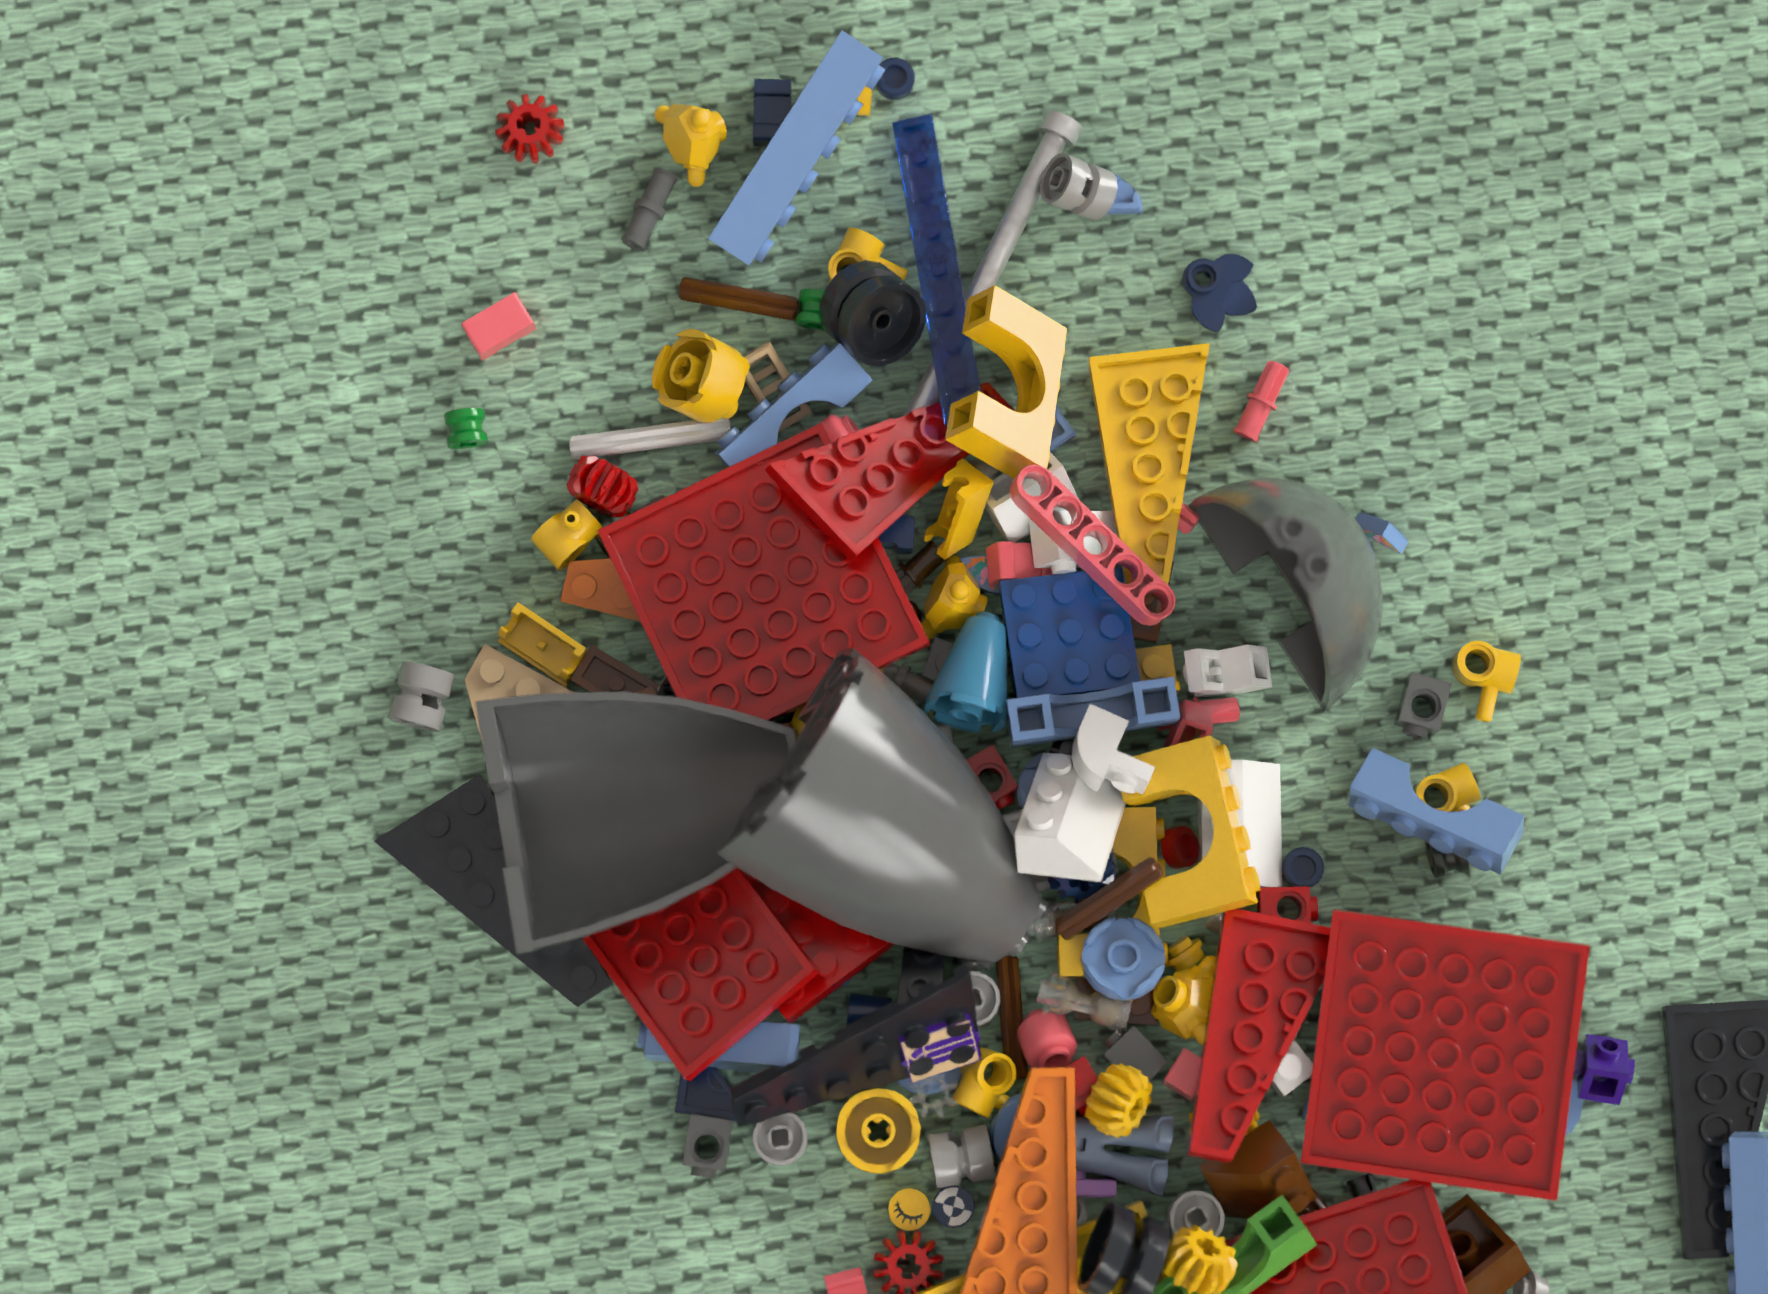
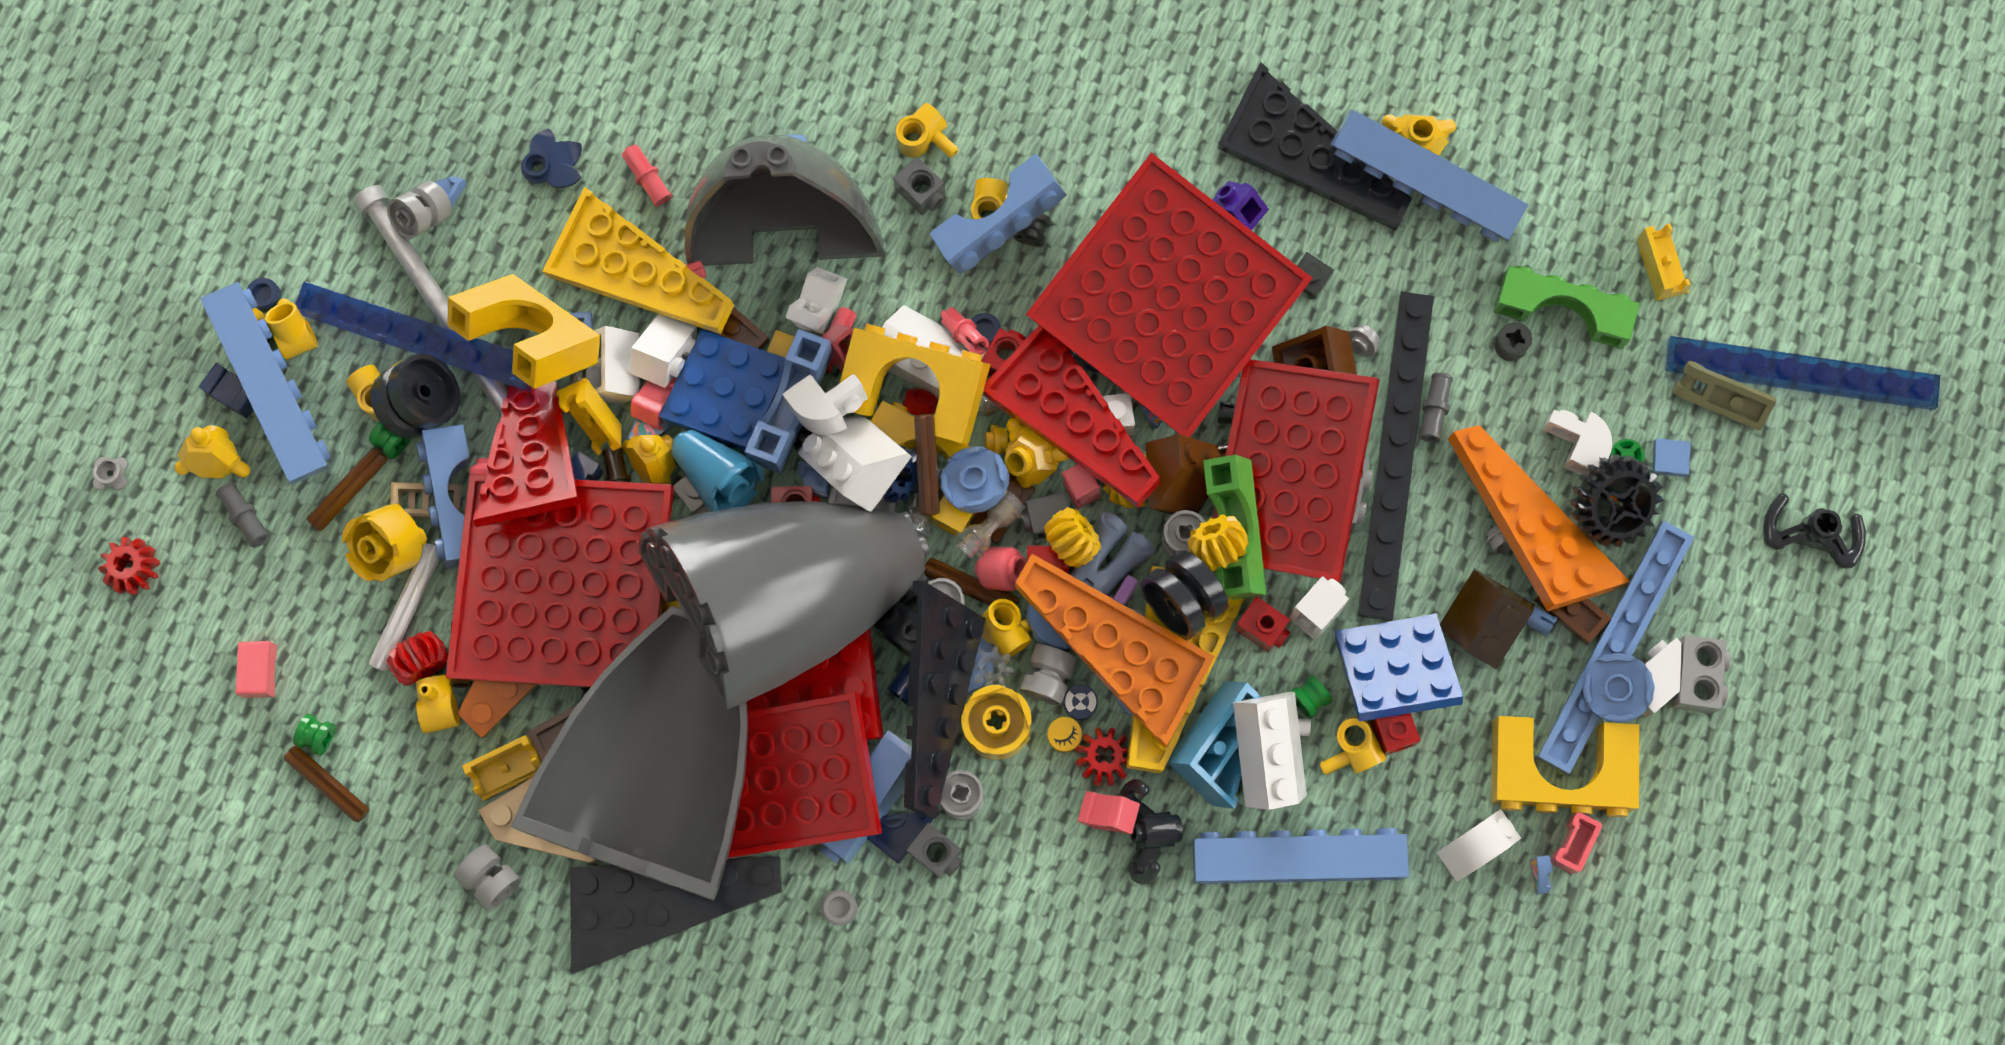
camera: 55 degrees left, 5 degrees down
(423, 471) = (326, 784): none -> reddish brown axle
(595, 1077) = (839, 907): none -> light grey tile
(615, 33) = (101, 469): none -> light grey plate
(872, 133) = (290, 329): none -> yellow piece
(939, 1049) = (963, 641): piece -> none
(1113, 550) = (661, 345): coral beam -> none
(1285, 849) = (964, 331): none -> coral axle
(1576, 1192) = (1318, 271): none -> pearl dark grey plate

